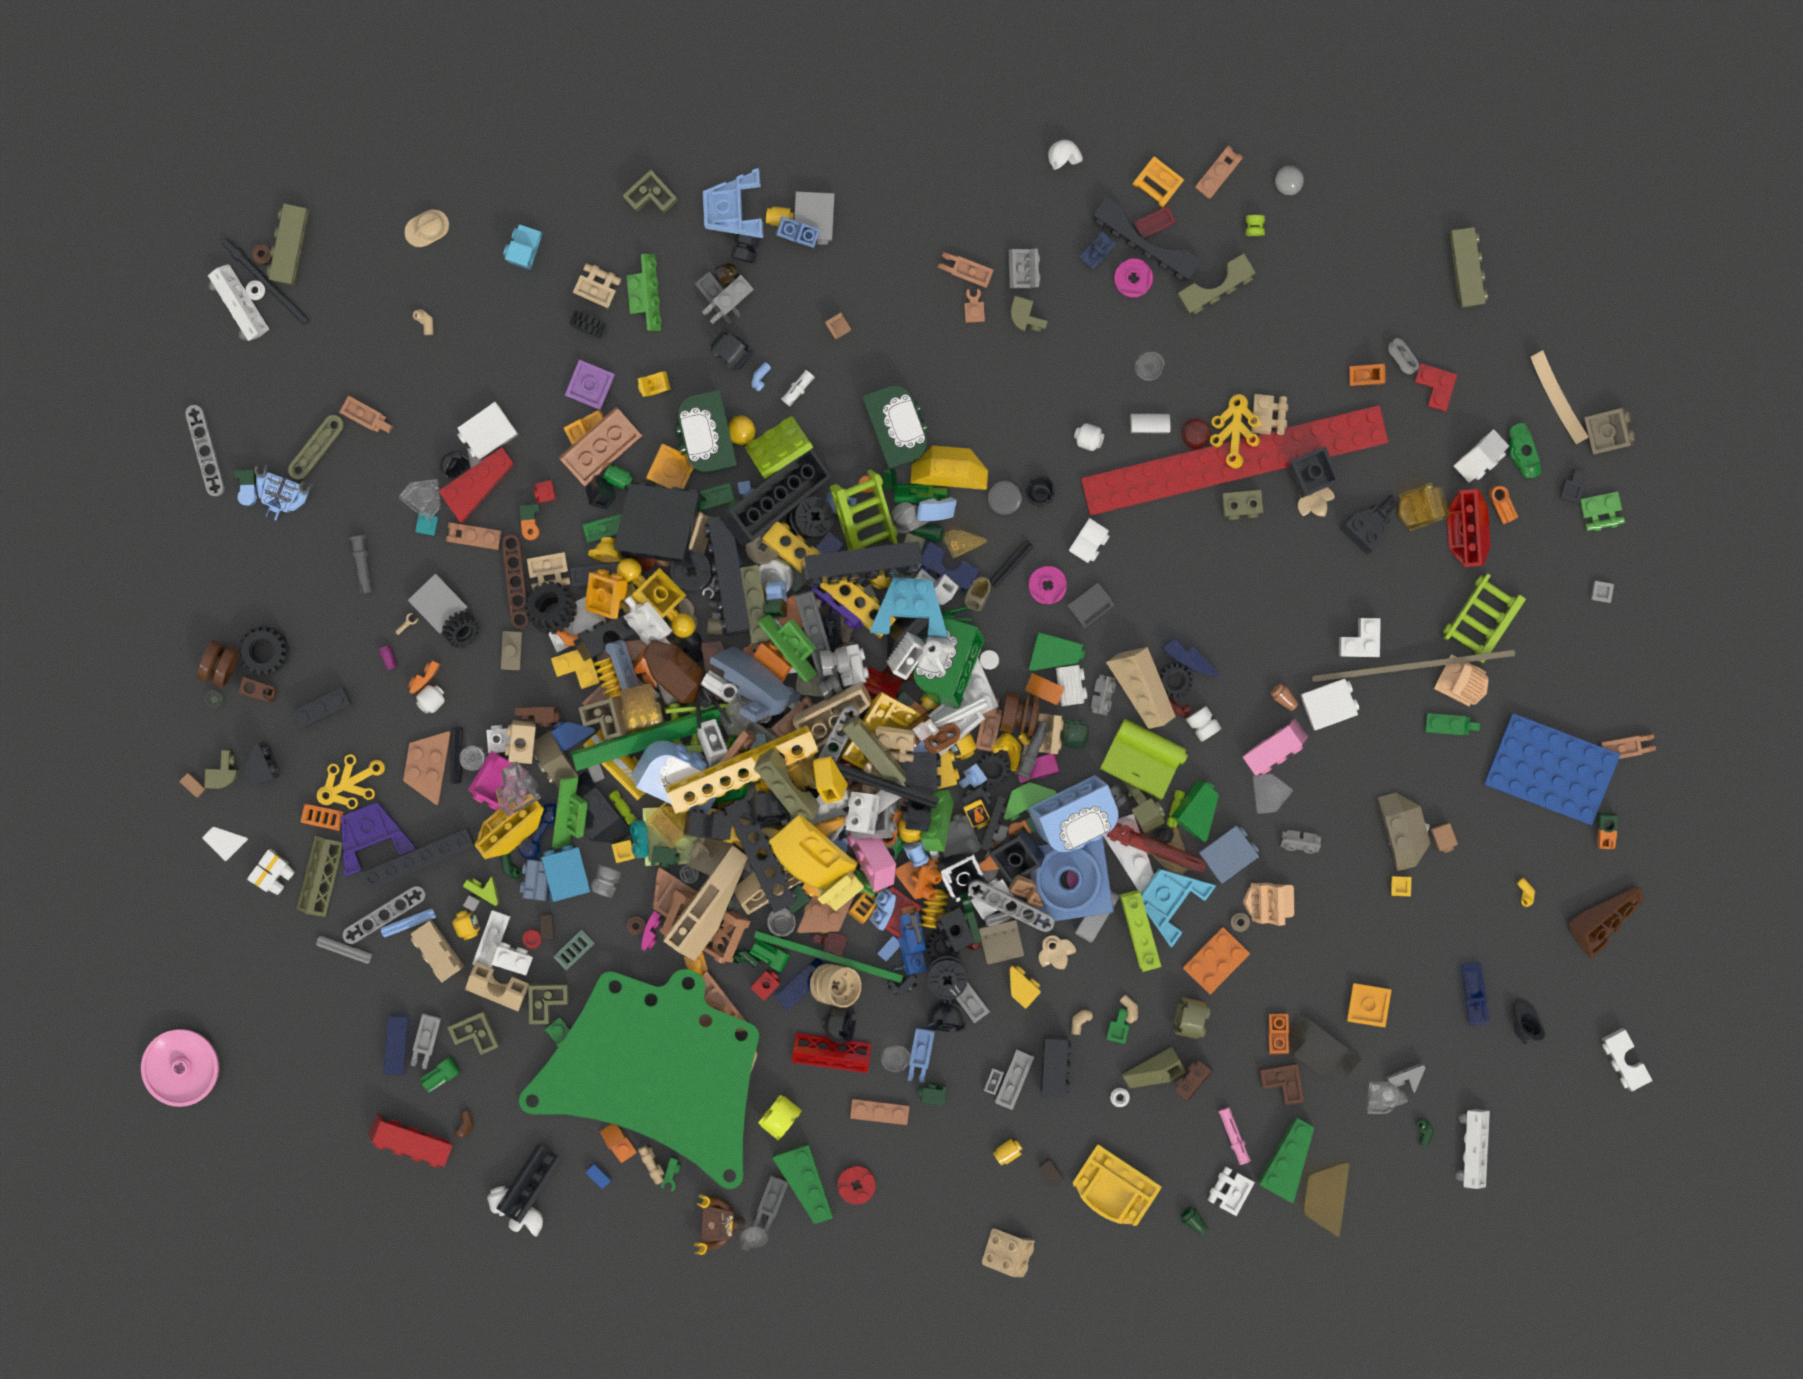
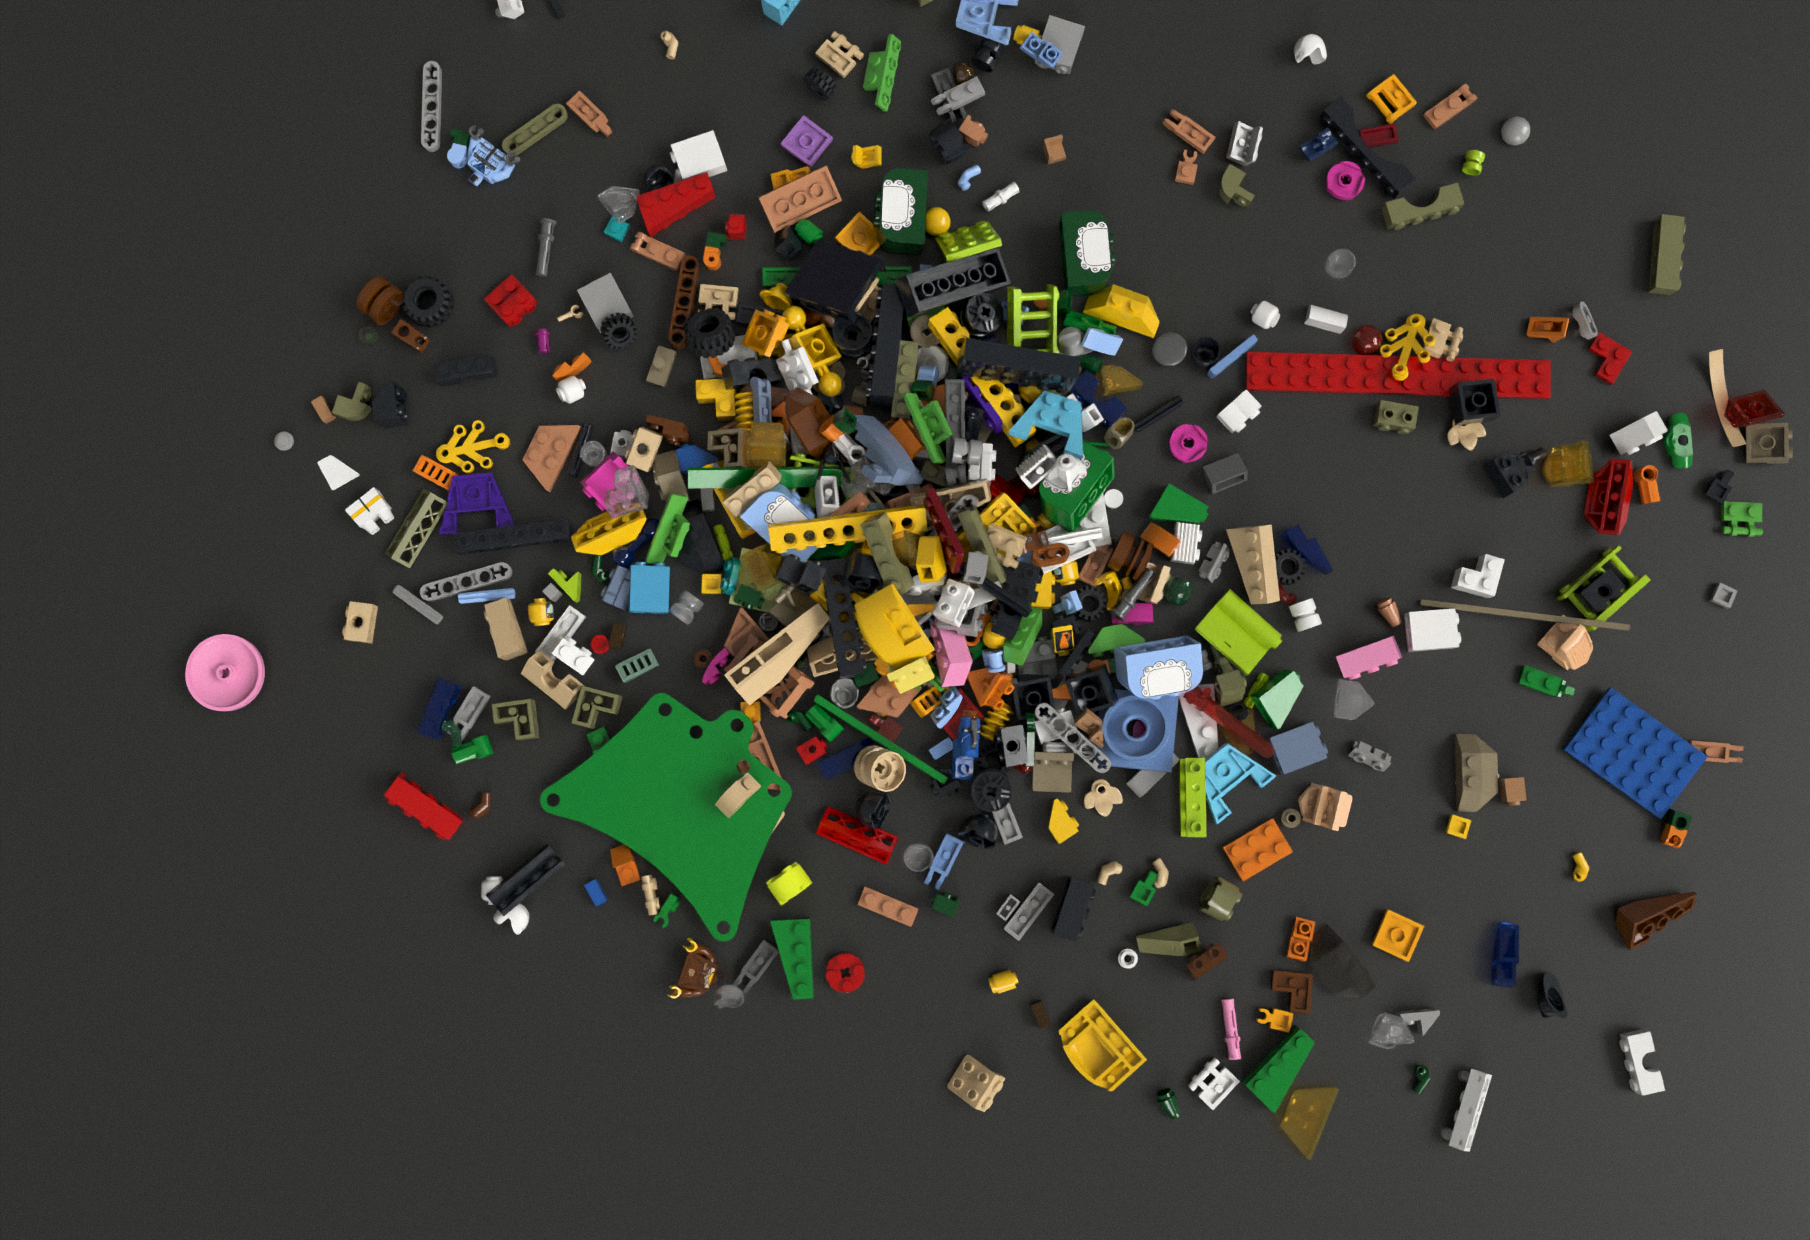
camera: 15 degrees right, 5 degrees down
(164, 826) = (284, 441): none -> light grey plate
(298, 972) = (366, 631): none -> tan brick
(344, 626) = (511, 301): none -> red plate
(420, 1063) = (455, 732): none -> clear green arm
(647, 744) = (743, 495): none -> tan arch
(703, 671) = (837, 425): none -> leg
(708, 1049) = (737, 795): none -> tan brick
(752, 330) = (973, 132): none -> nougat brick
(835, 749) = (948, 538): none -> dark red wing
(874, 775) = (975, 567): none -> light grey brick
(1068, 487) = (1230, 358): none -> medium blue tile
(1277, 1115) = (1278, 1019): none -> light orange plate
(1469, 630) = (1589, 596): none -> black brick
(1584, 404) = (1752, 409): none -> clear red slope

